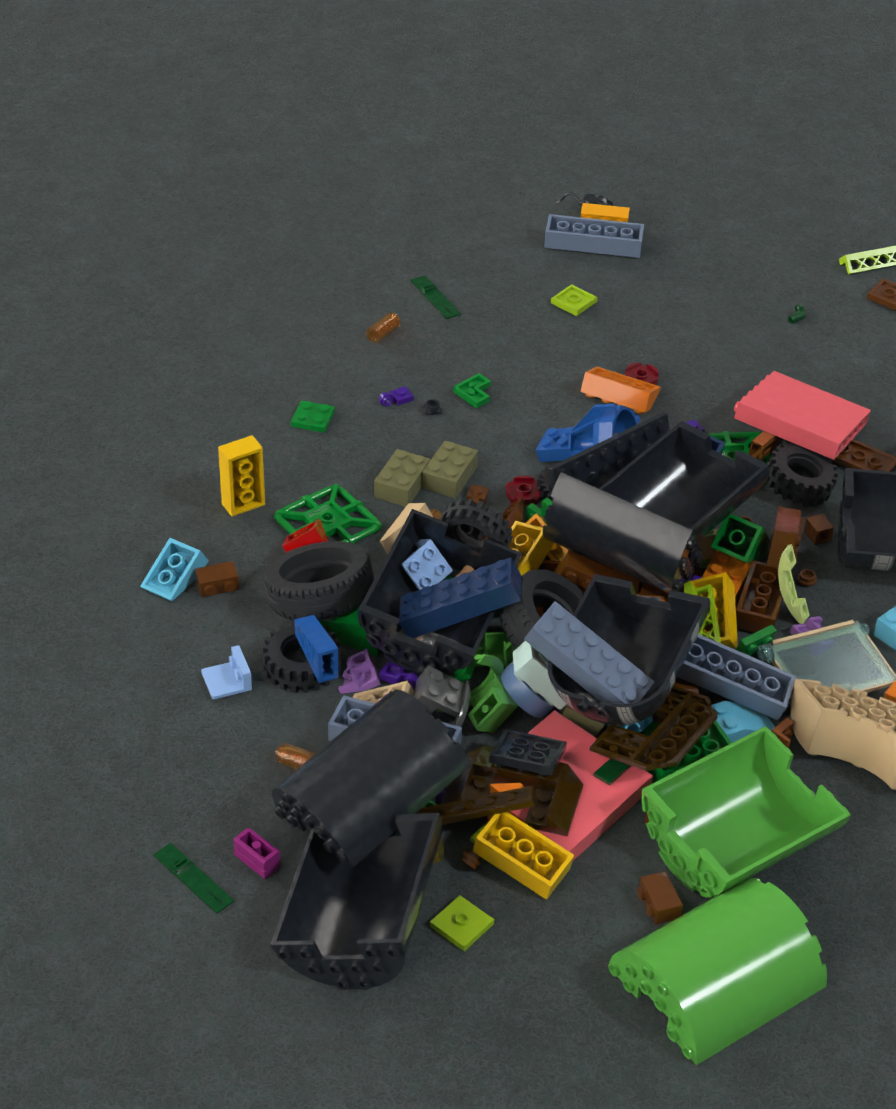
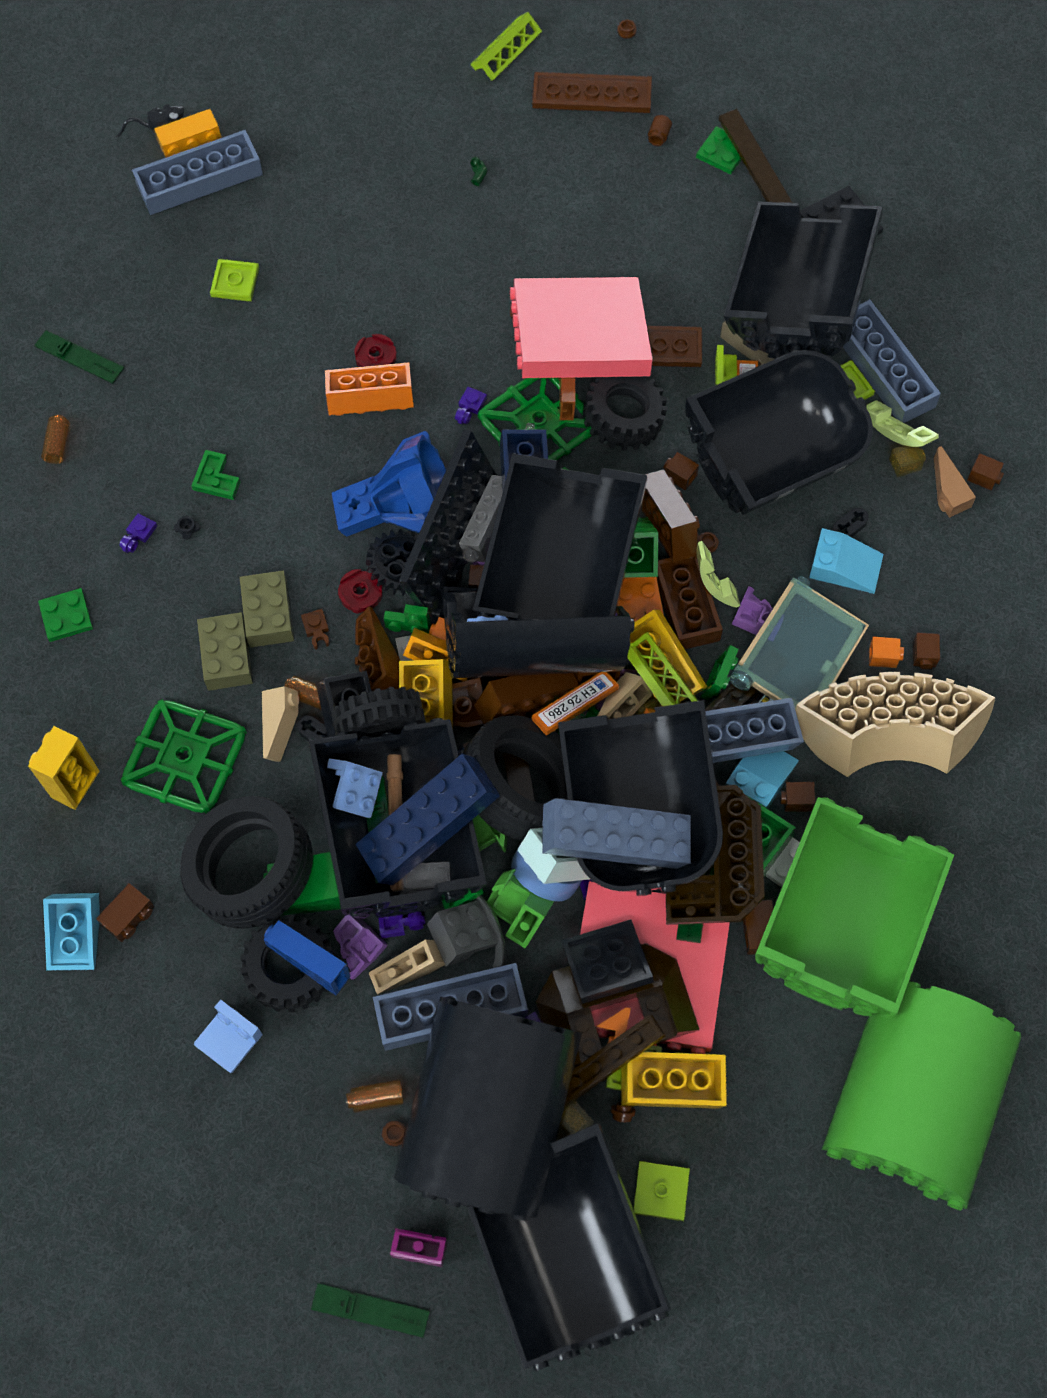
camera: 30 degrees left, 25 degrees up
(307, 535) = (186, 805): red slope -> none
(659, 898) = (821, 1042): reddish brown brick -> none
(784, 731) = (807, 766): dark orange bracket -> none

